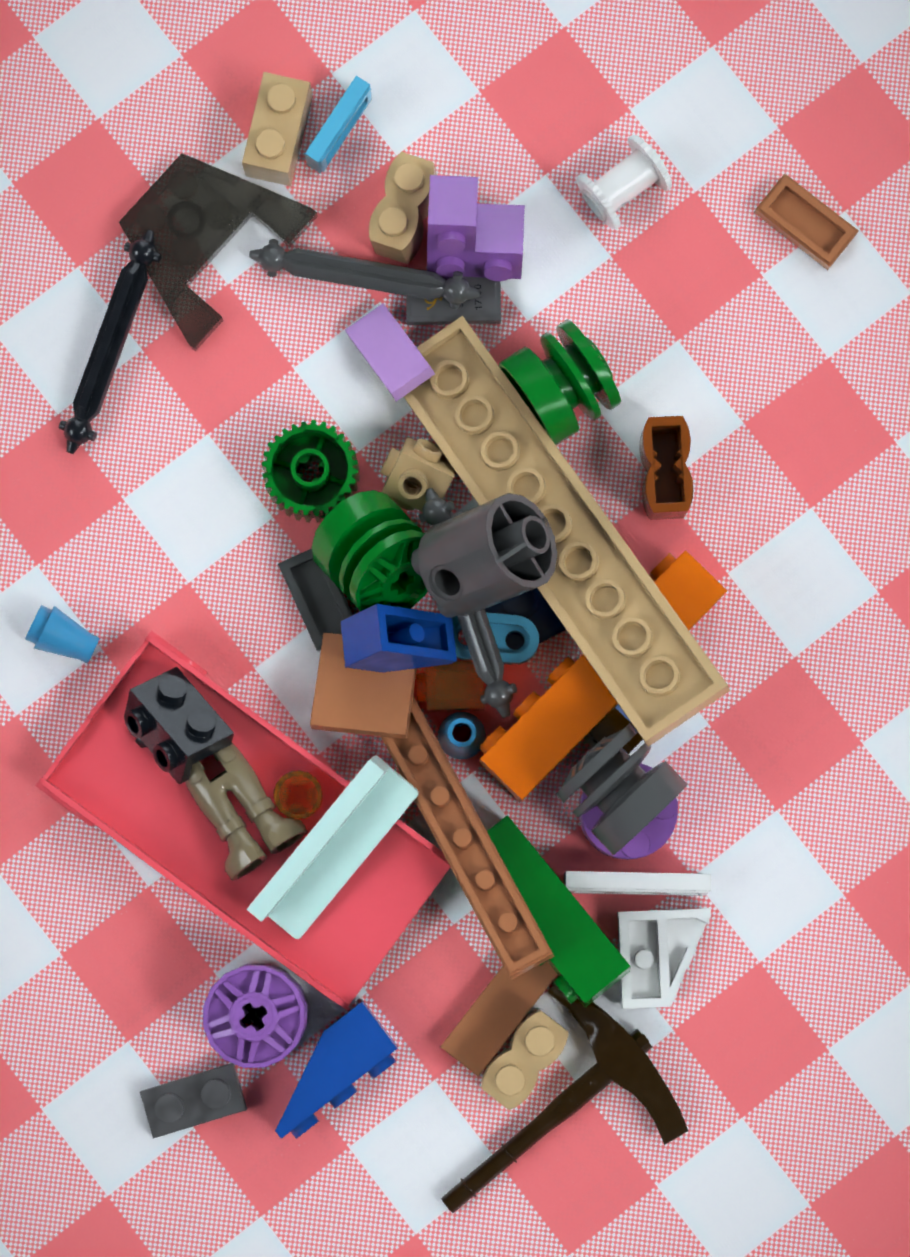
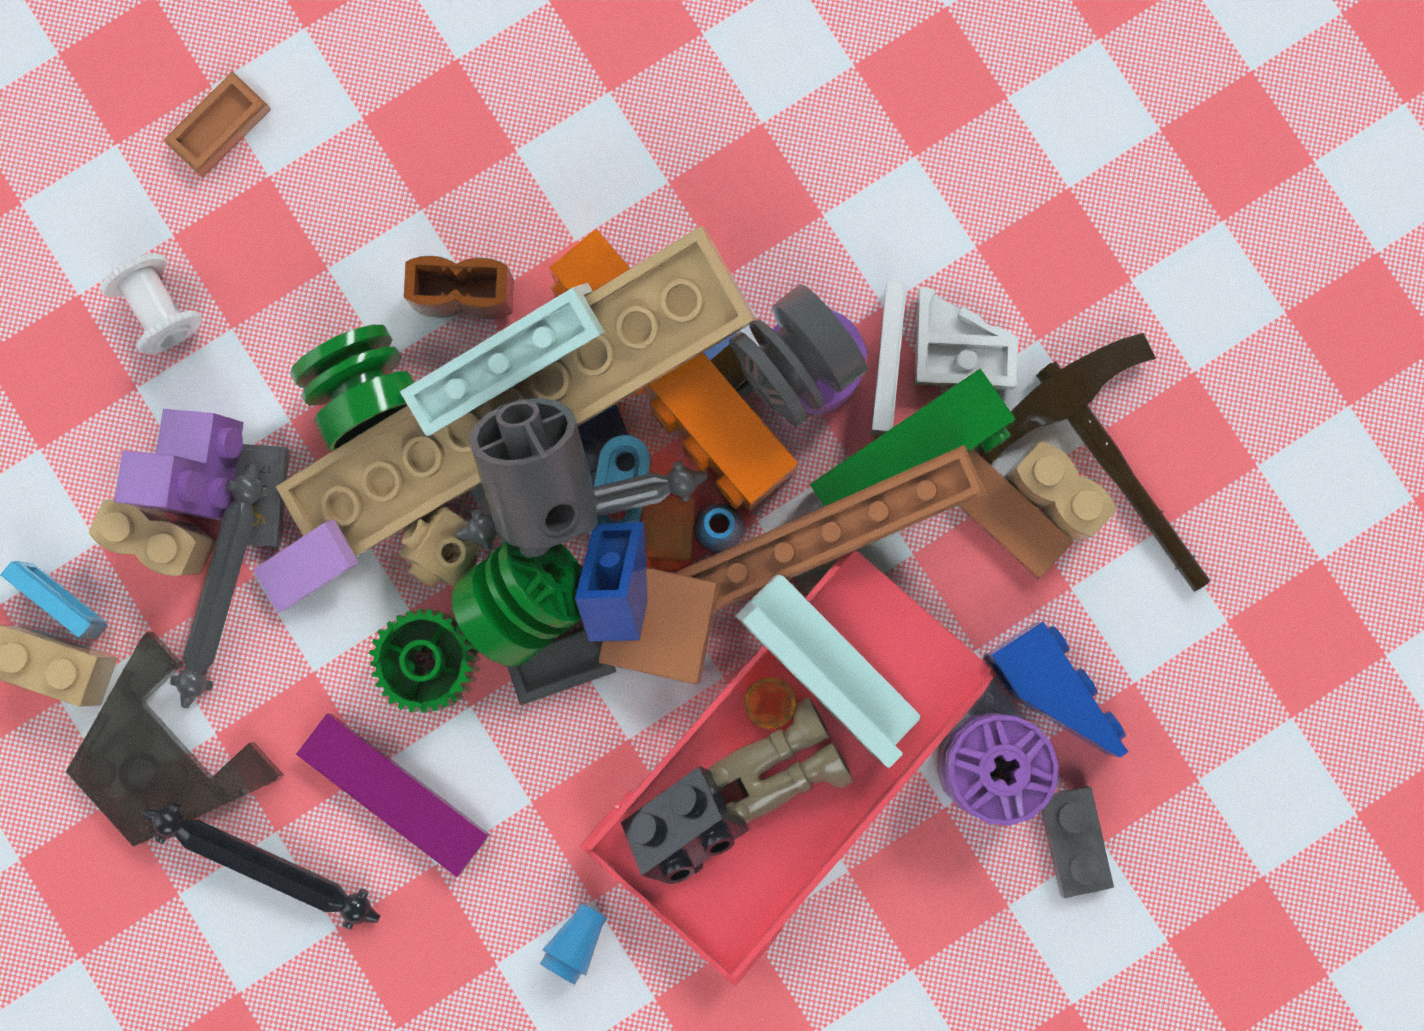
camera: 85 degrees left, 0 degrees up
(185, 454) = (393, 794): none -> magenta tile
(592, 516) = (503, 360): none -> light aqua panel

